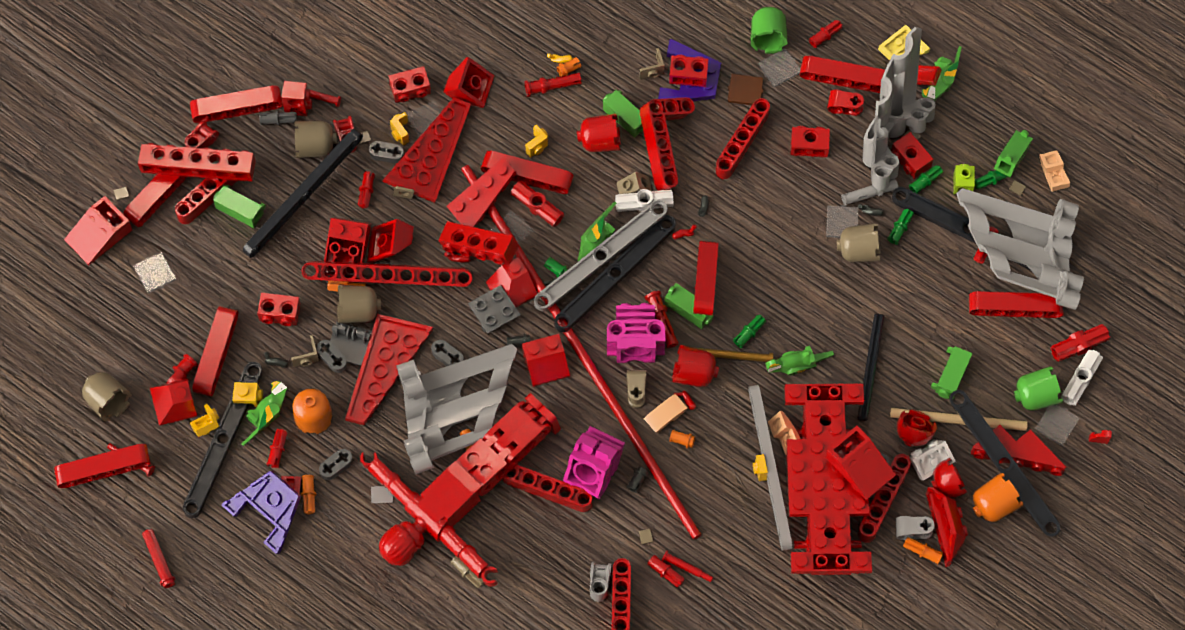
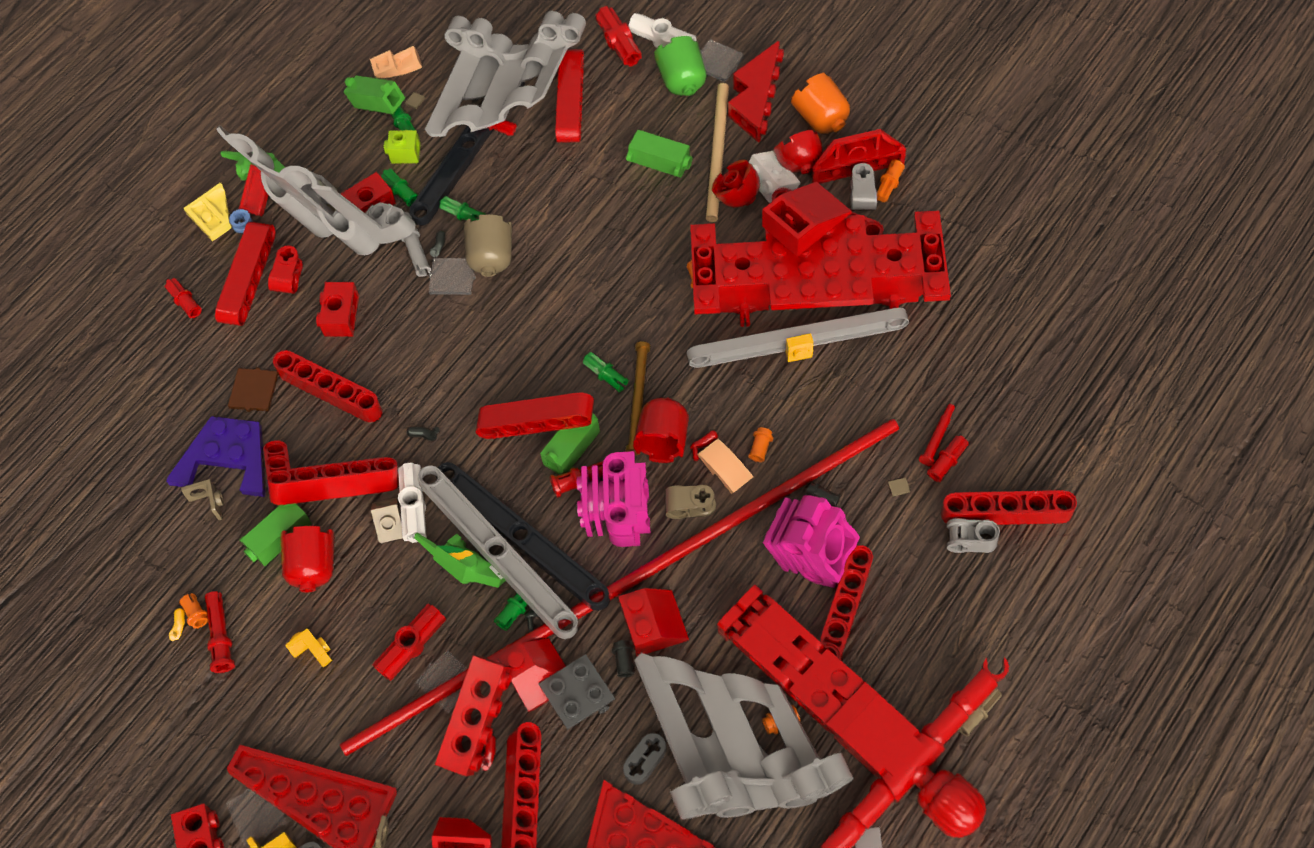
camera: 85 degrees left, 5 degrees down
(469, 83) = (205, 749): red slope -> none
(478, 197) = (397, 724): wing -> none
(532, 173) = (357, 660): red beam -> none
(684, 232) = (460, 454): red piece -> none
(688, 75) = (227, 447): red brick -> none
(769, 30) = (170, 355): bright green cylinder -> none
(779, 67) = (225, 351): clear piece -> none
(783, 429) = (749, 323): light nougat slope -> none
(796, 361) = (647, 316): bright green animal -> none
(871, 364) = (637, 238): black axle -> none
(996, 451) = (764, 102): black beam -> none
(1103, 437) = (734, 17): red tile -> none

